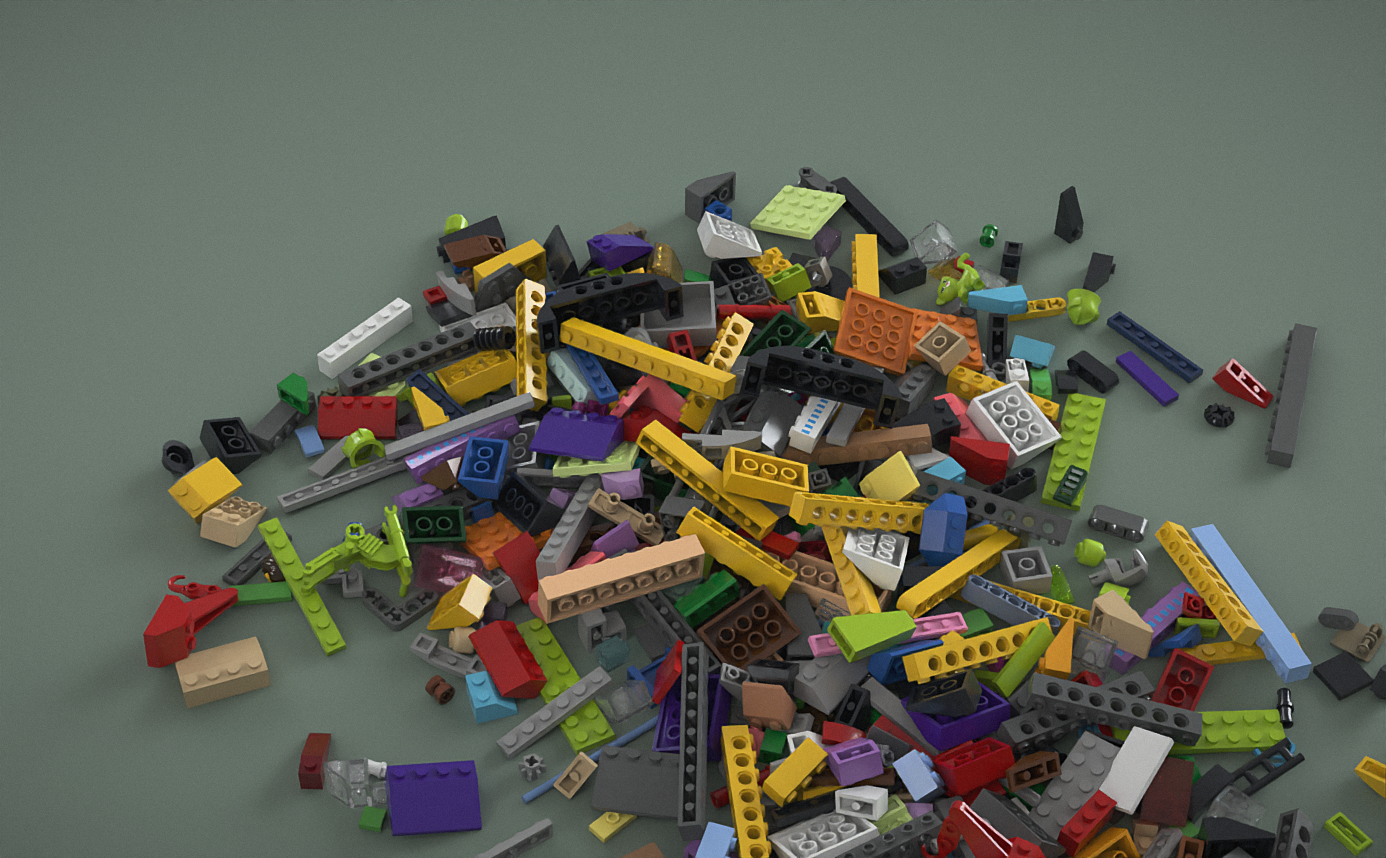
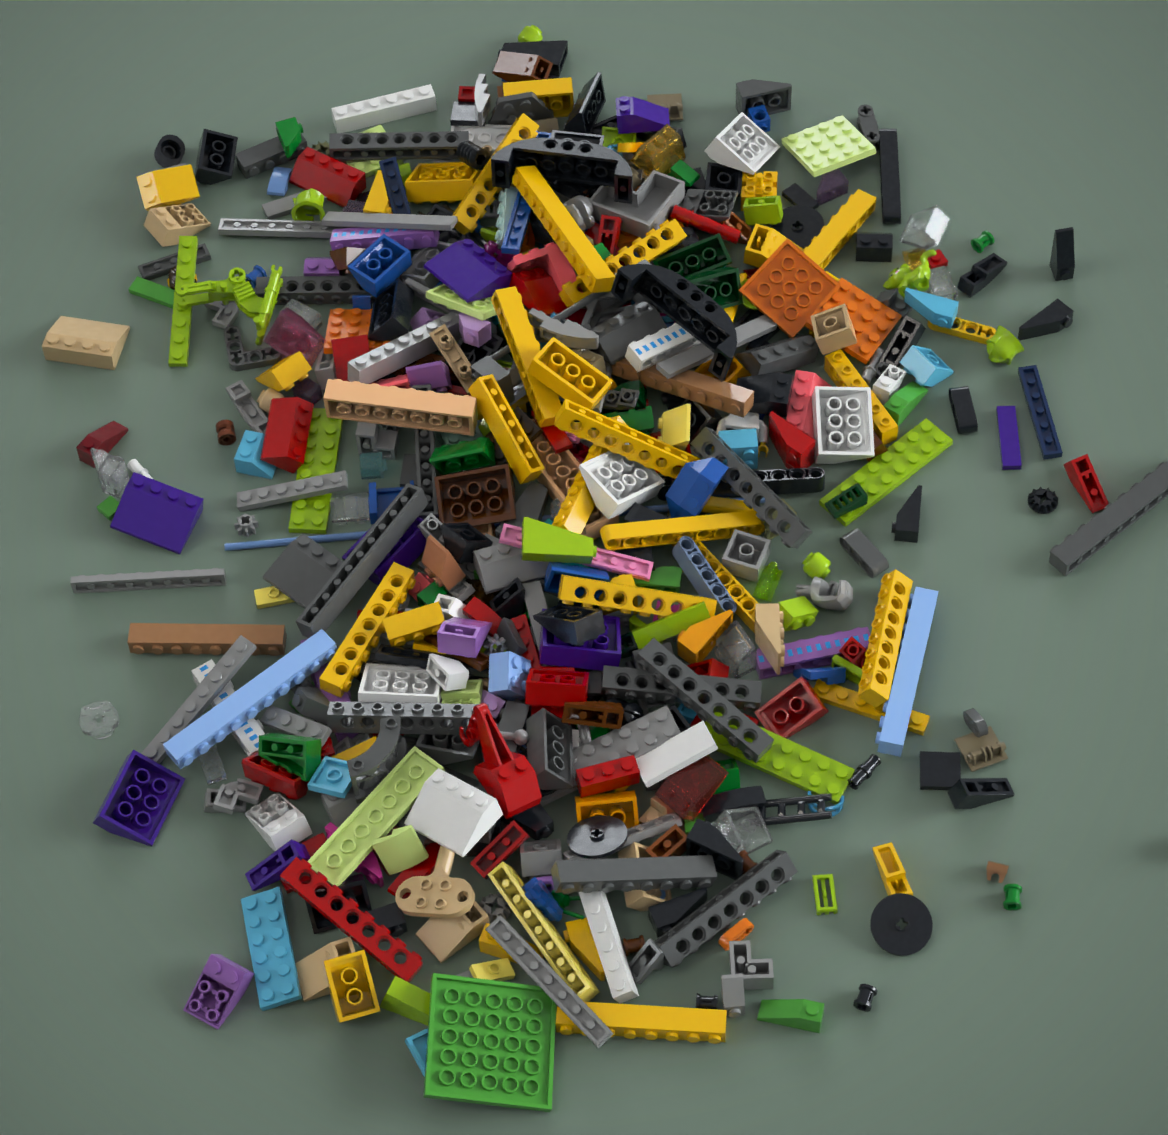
camera: 35 degrees right, 10 degrees up
(175, 623) = (70, 289): red slope -> none
(433, 524) = (306, 296): dark green slope -> none
(575, 775) = (269, 546): tan slope -> none
(668, 672) = (383, 504): red tile -> none
(820, 265) = (792, 211): dark grey brick -> none
(1066, 381) = (932, 407): black slope -> none
(1131, 479) = (907, 521): none -> black slope

